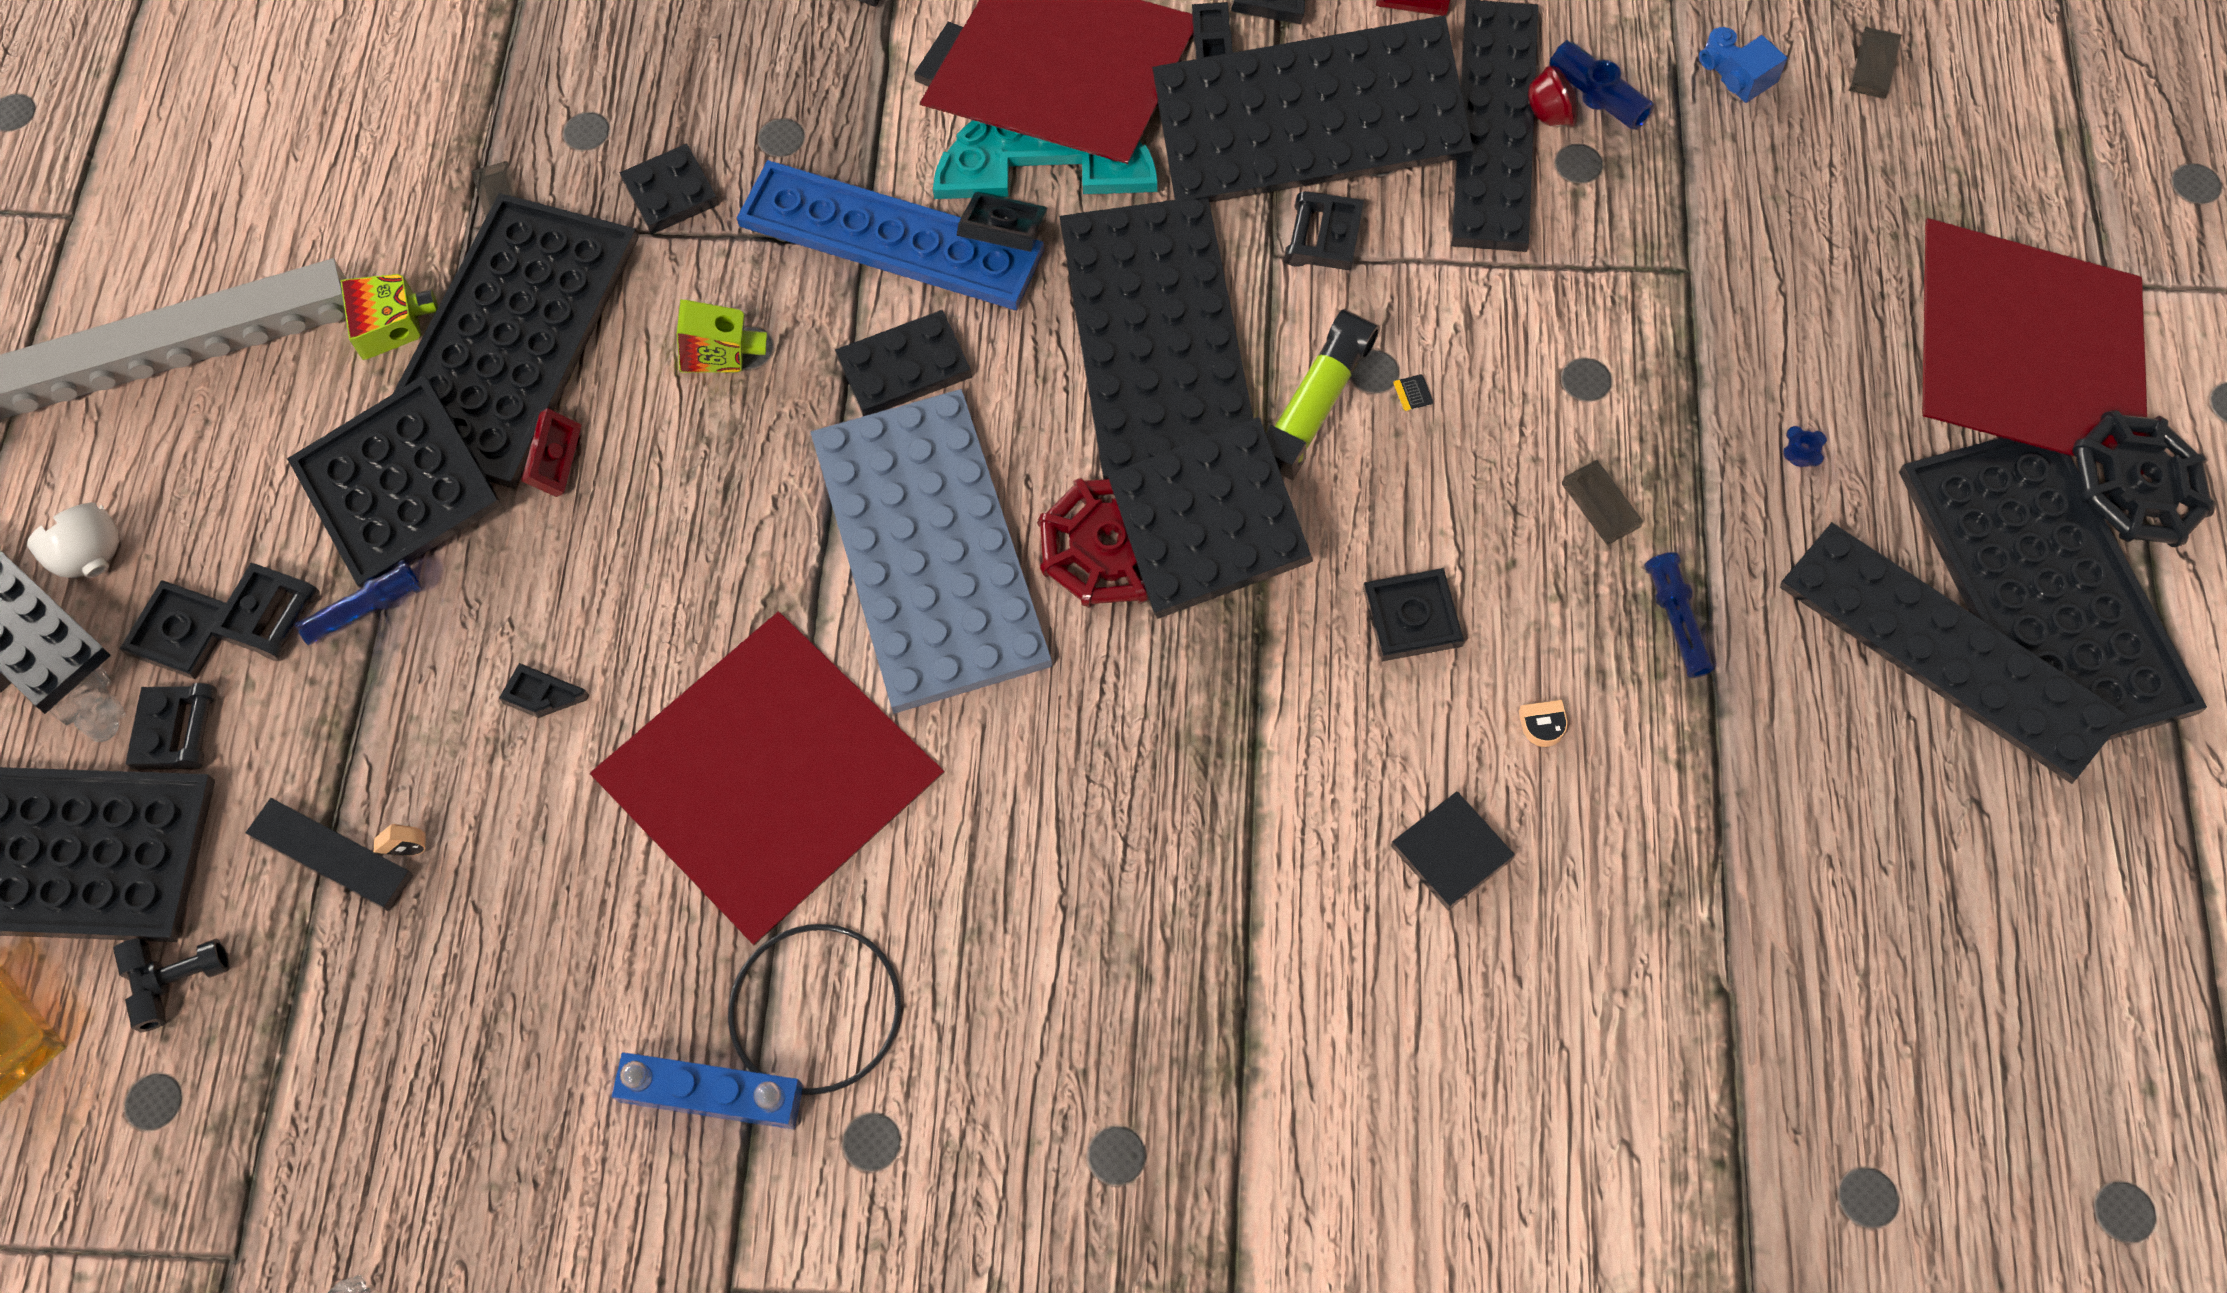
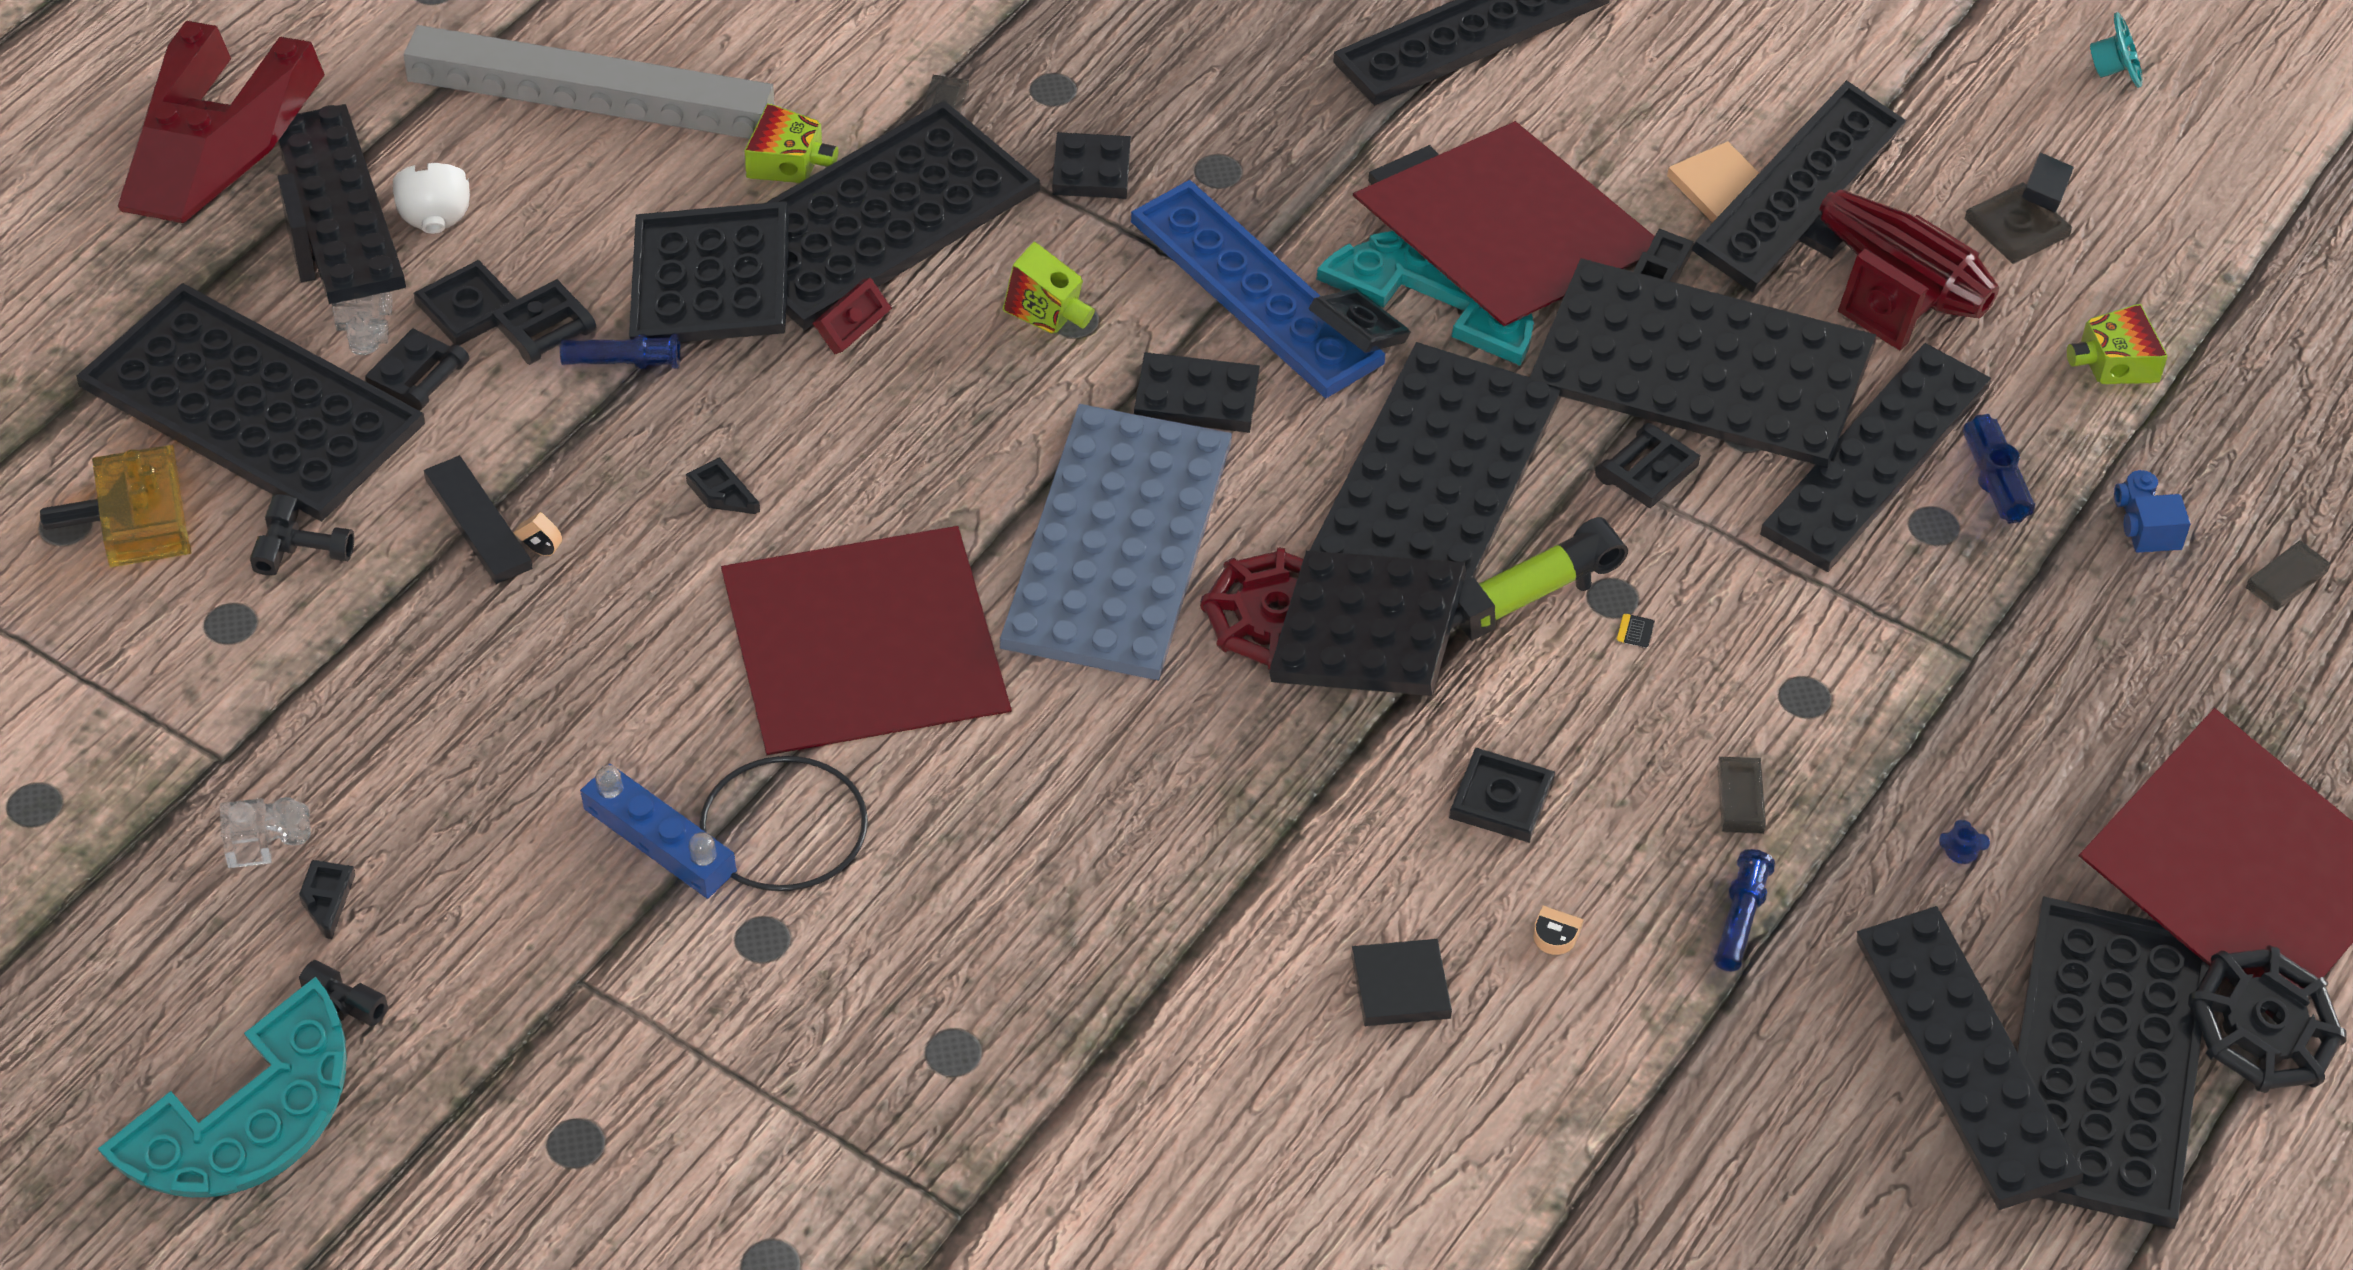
camera: 25 degrees right, 15 degrees down
(1553, 98) = (1944, 457): dark red helmet -> none

